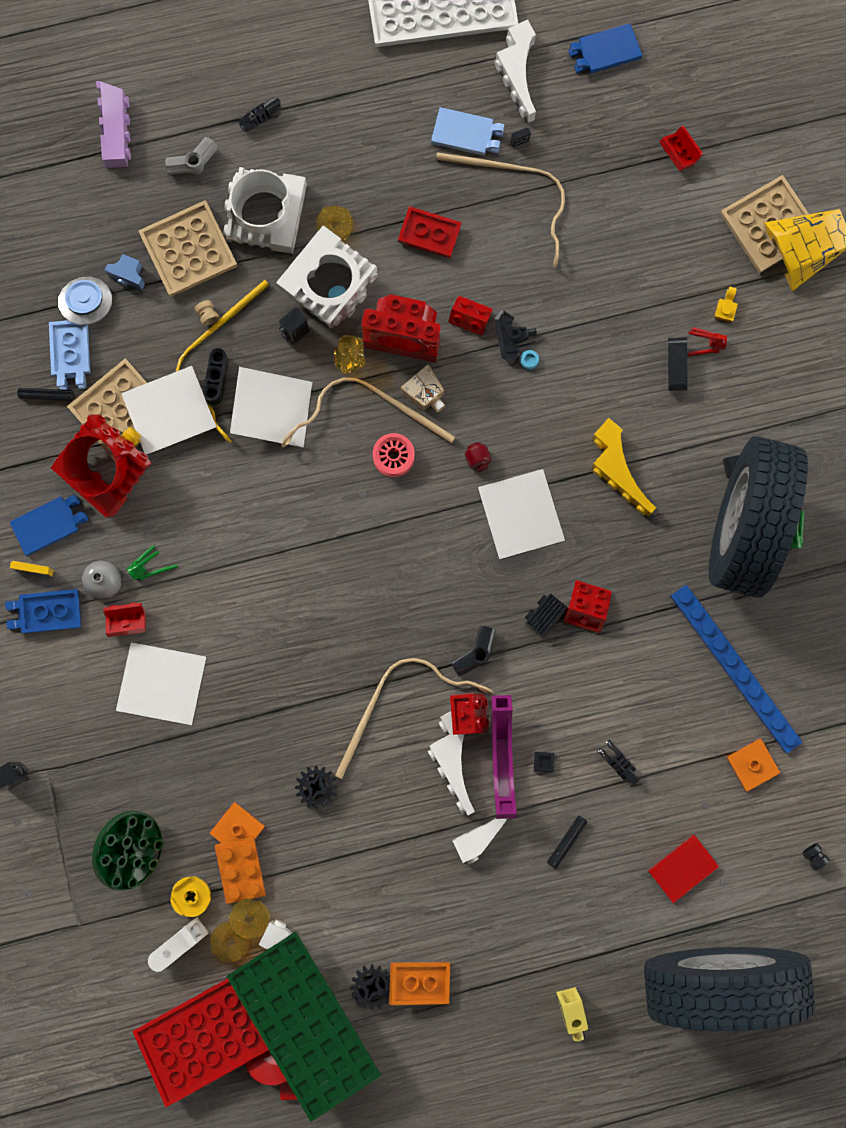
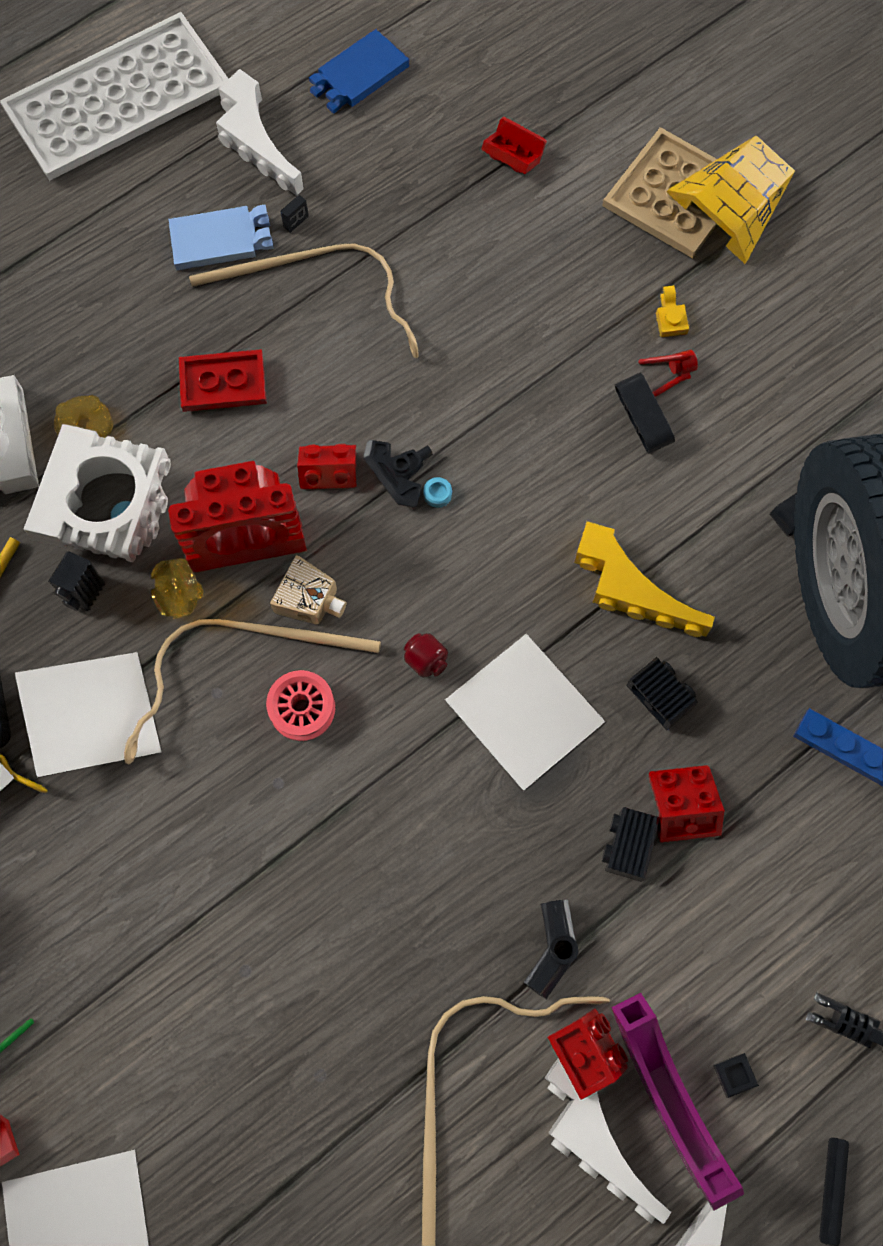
camera: 20 degrees left, 10 degrees down
(604, 538) = (662, 692): none -> black brick

